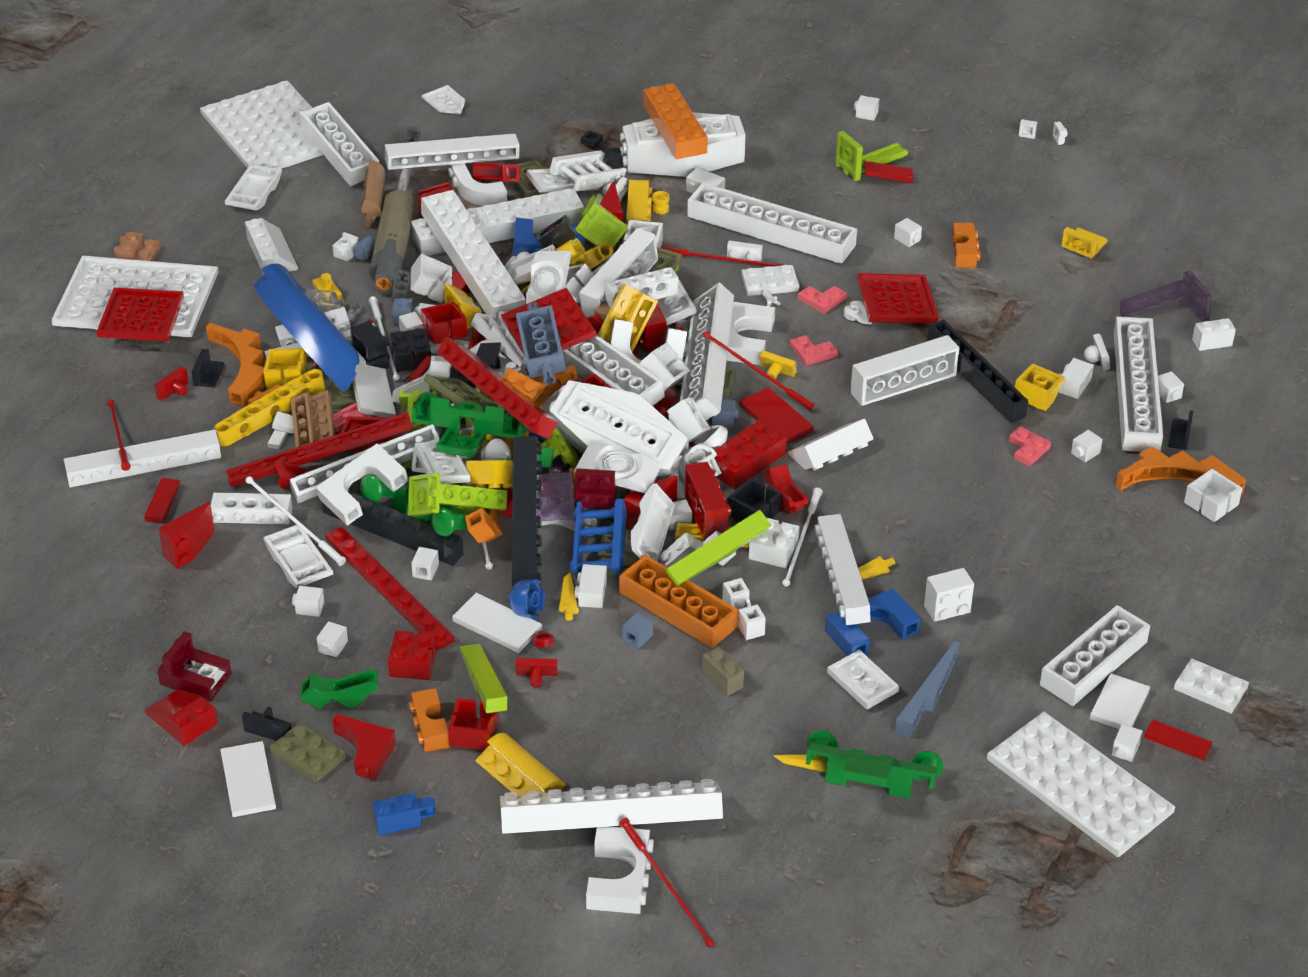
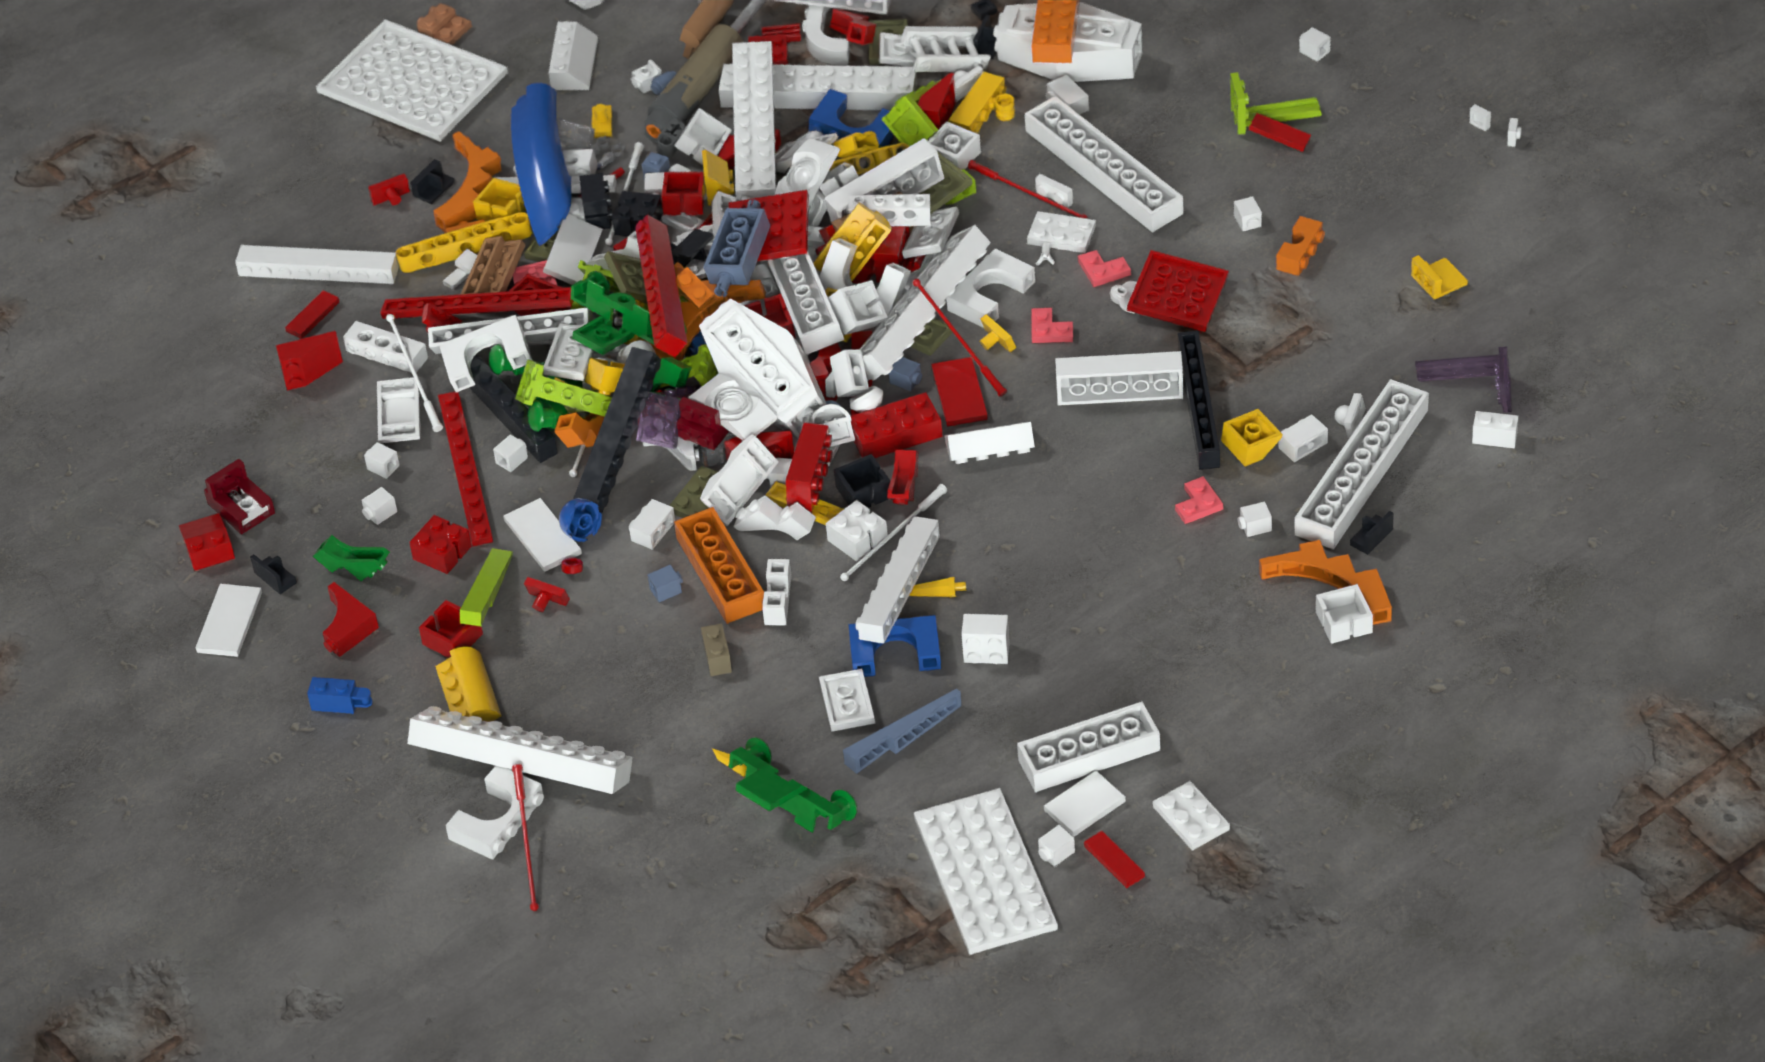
camera: 30 degrees right, 5 degrees up
(125, 465) = (288, 268): red piece -> none
(140, 314) = (399, 103): red plate -> none
(308, 752) = (295, 611): olive plate -> none
(426, 708) = (420, 600): orange arch -> none
(556, 233) = (853, 120): black panel -> none
(568, 601) = (621, 534): yellow bar -> none
(617, 530) = (691, 491): blue fence -> none
(719, 548) = (782, 521): lime slope -> none
(1170, 387) = (1397, 477): white brick -> none

